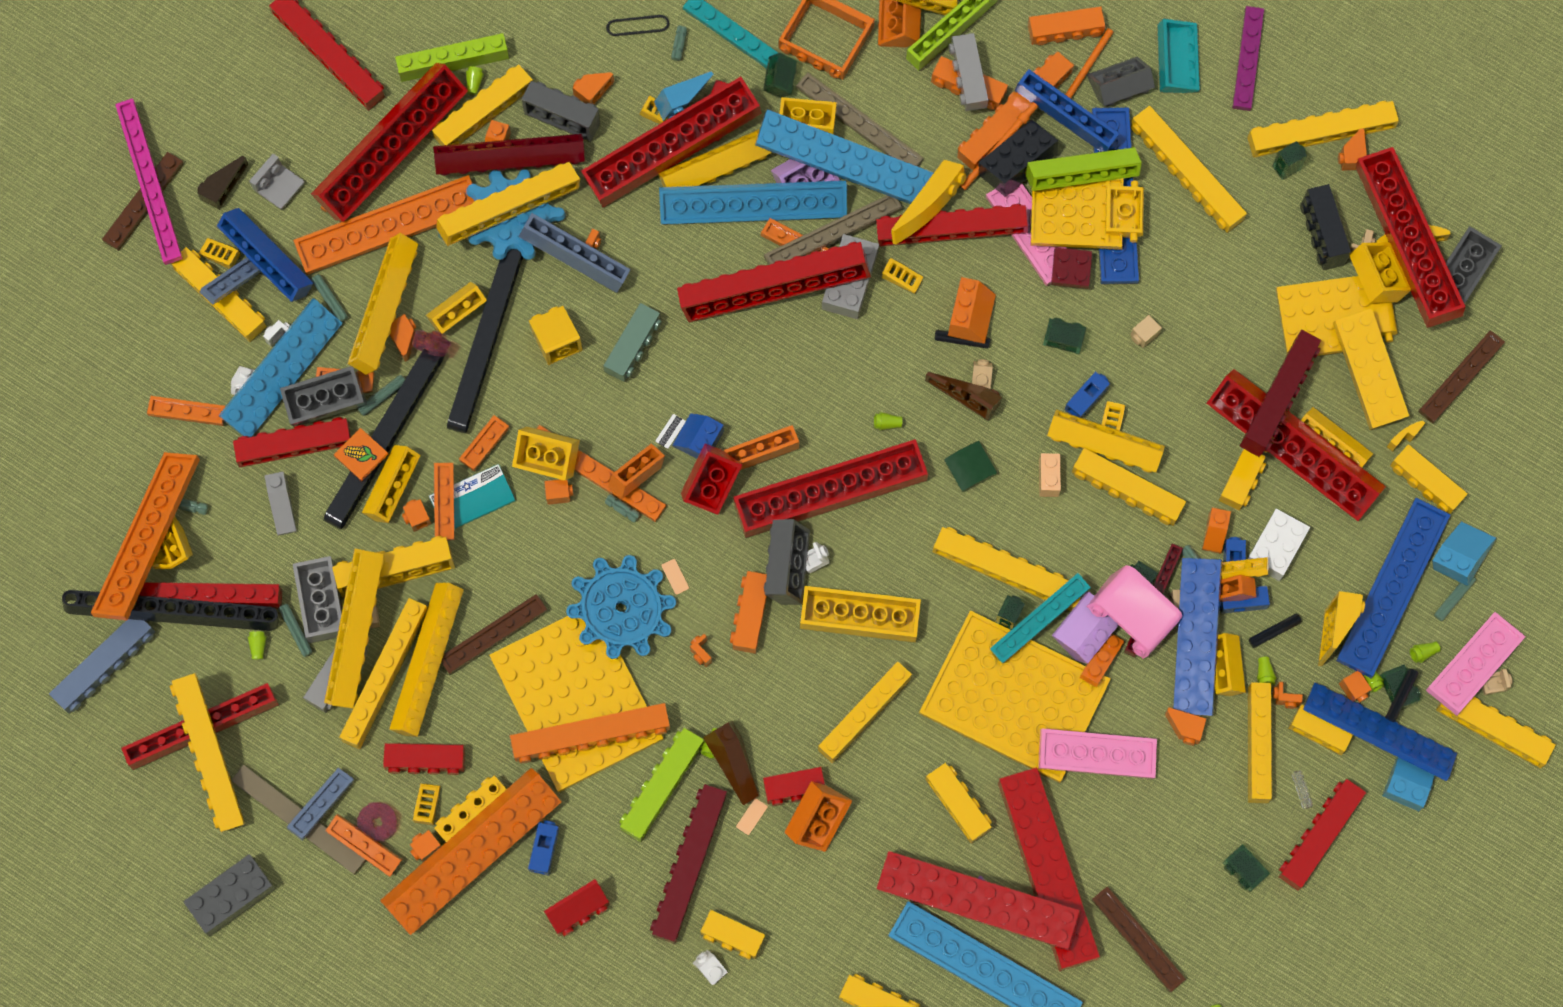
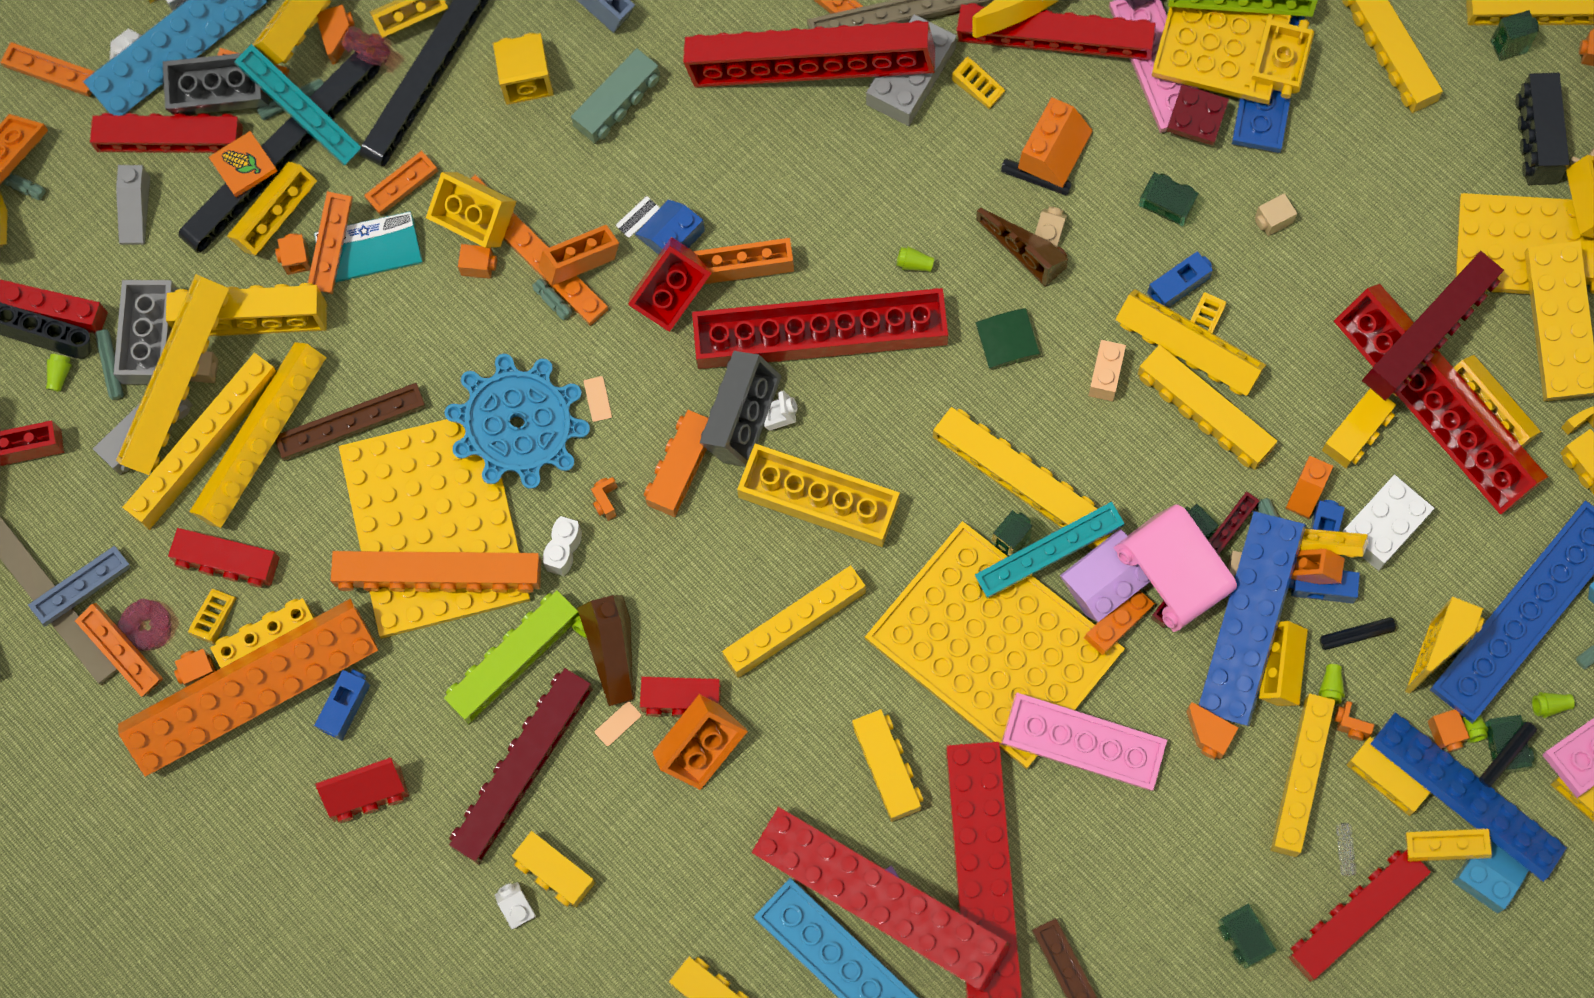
camera: 20 degrees right, 0 degrees up
(393, 400) = (297, 105): none -> teal plate
(677, 697) = (559, 551): none -> white brick
(1374, 770) = (1448, 845): none -> yellow plate

